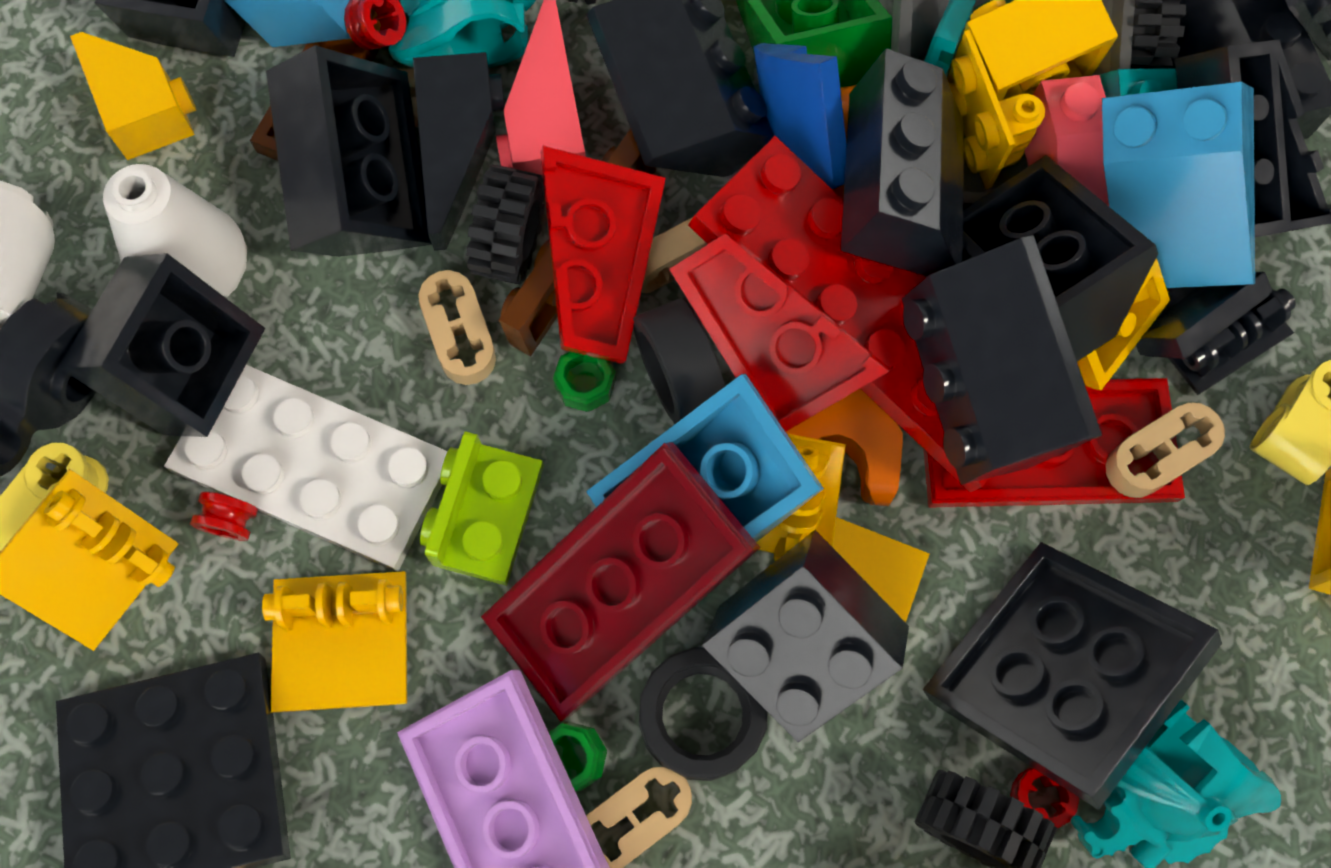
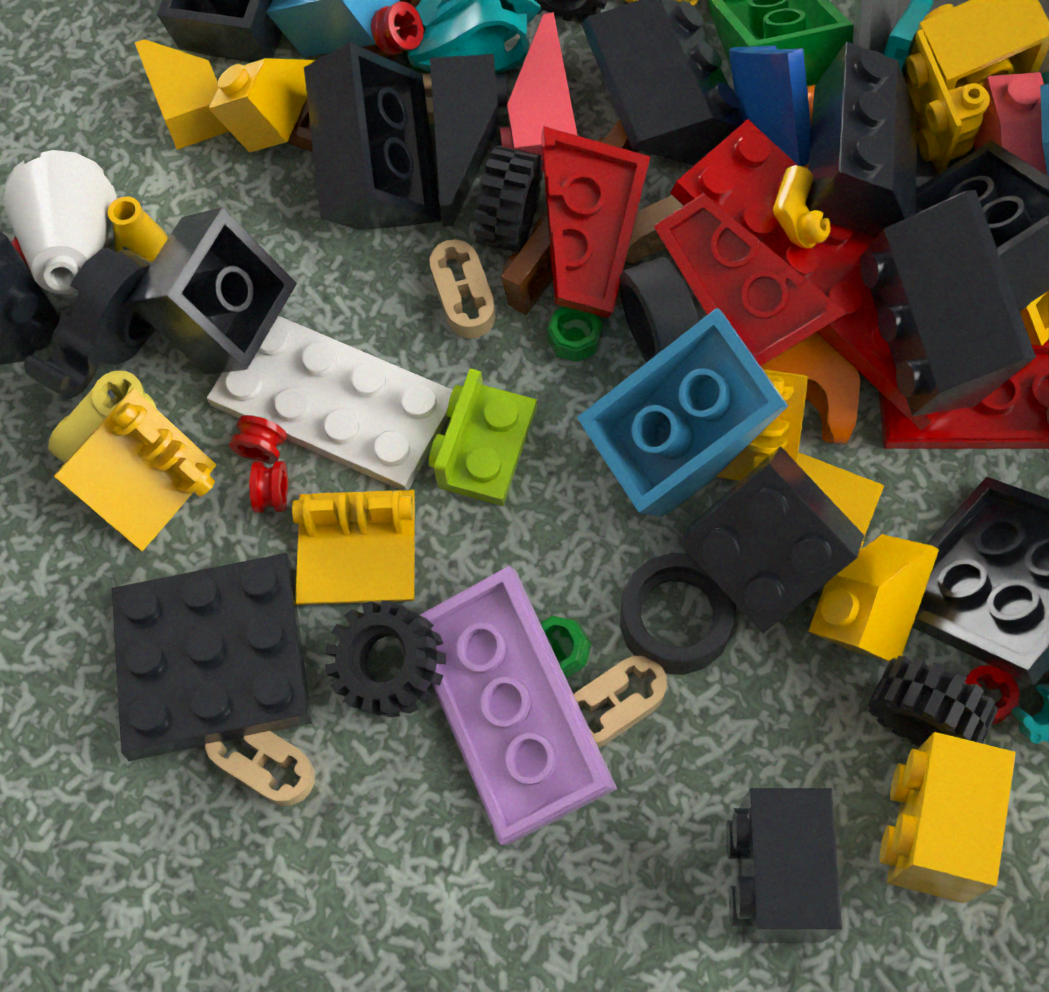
camera: 10 degrees right, 5 degrees down
(76, 267) = (135, 228): none -> yellow cone
(160, 215) = (210, 178): white cone -> none
(220, 106) = (261, 100): none -> yellow slope
(236, 573) = (268, 486): none -> red bush
(336, 788) = (355, 645): none -> black tyre
(619, 580) = (604, 493): dark red tile -> none
(834, 265) = (790, 210): none -> yellow arm
(924, 705) = (876, 598): none -> yellow slope

